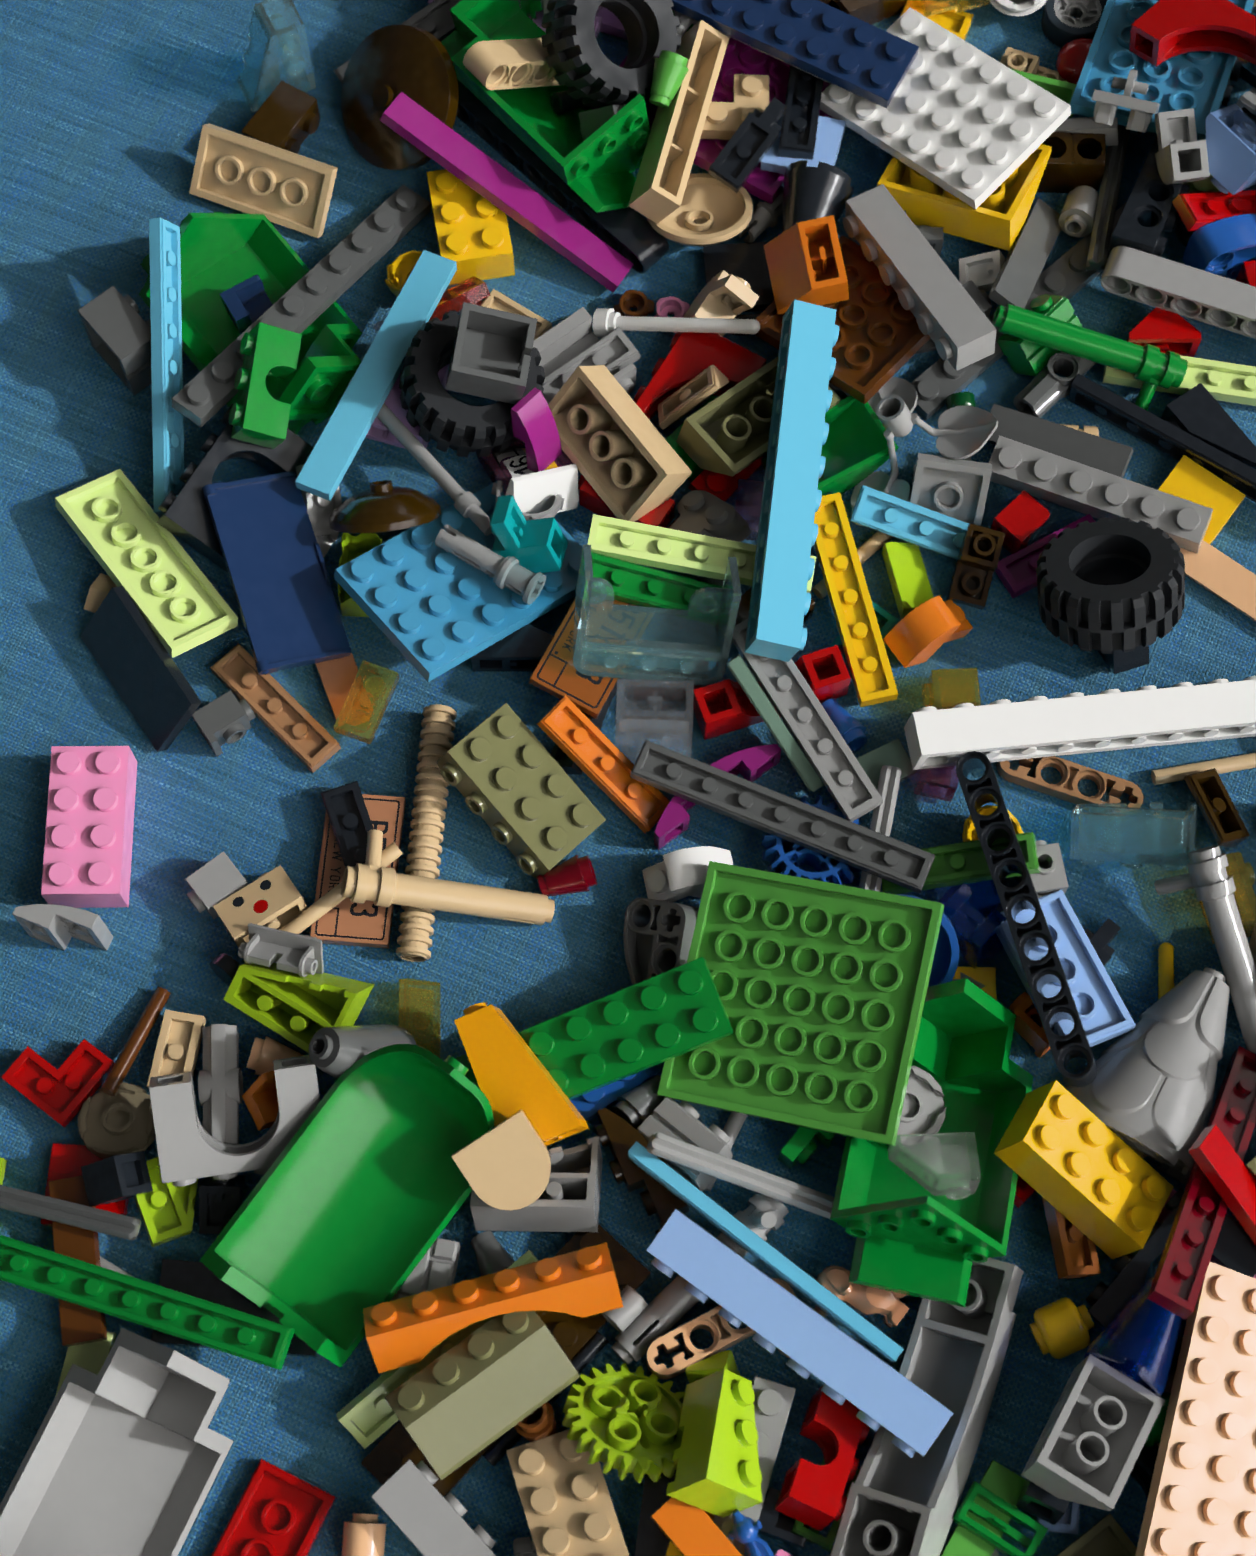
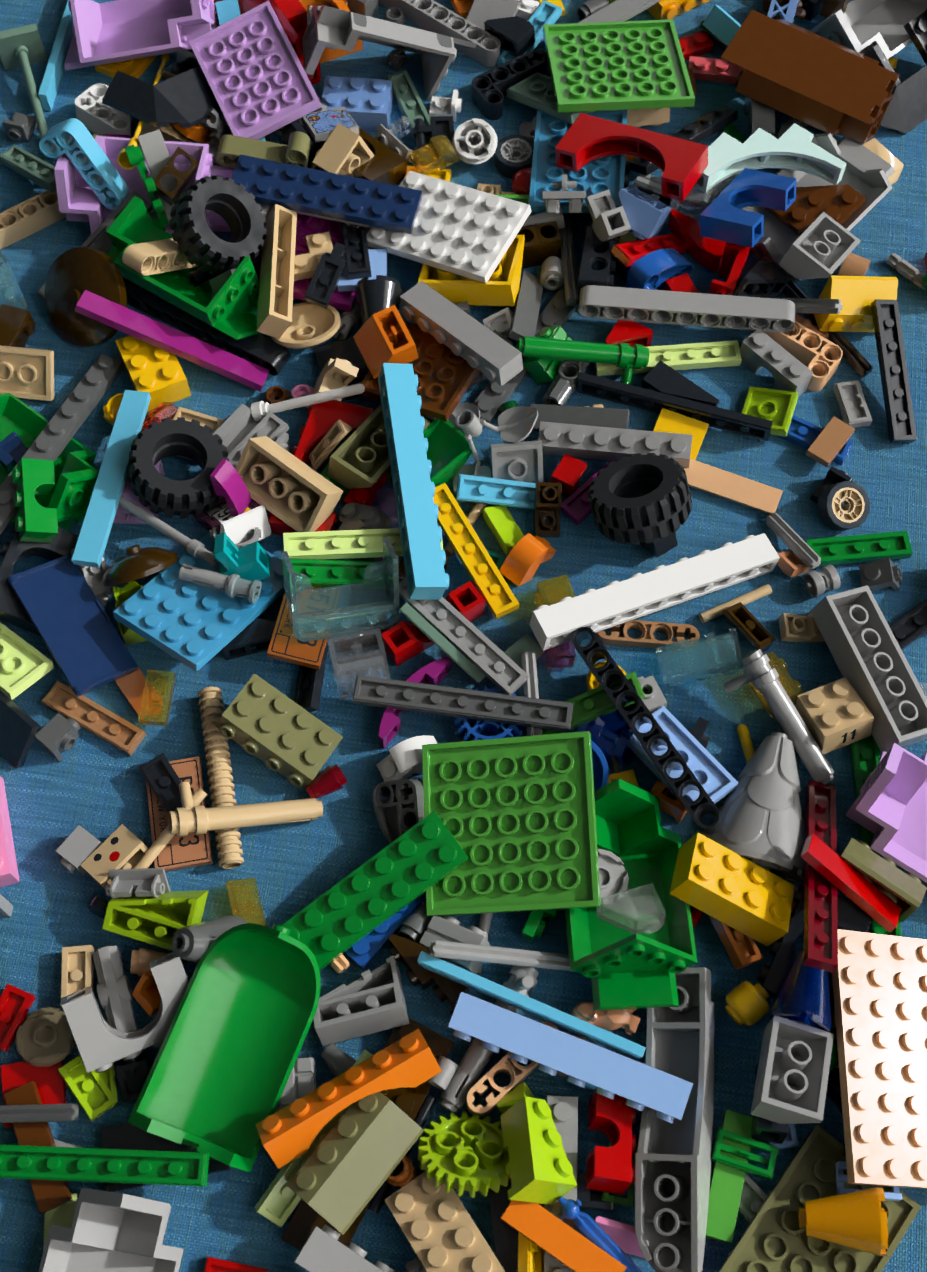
camera: 15 degrees left, 5 degrees down
(116, 1178) = (53, 1078): black brick -> none
(135, 1041) = (45, 976): reddish brown bar -> none
(488, 353) = (187, 442): dark grey piece -> none
(506, 1164) = (334, 991): tan tile -> none
(514, 1075) = (333, 940): light orange slope -> none
(603, 763) = (331, 698): orange tile -> none
(667, 77) = (262, 243): bright green cone -> none
(849, 728) = (490, 632): blue cone -> none

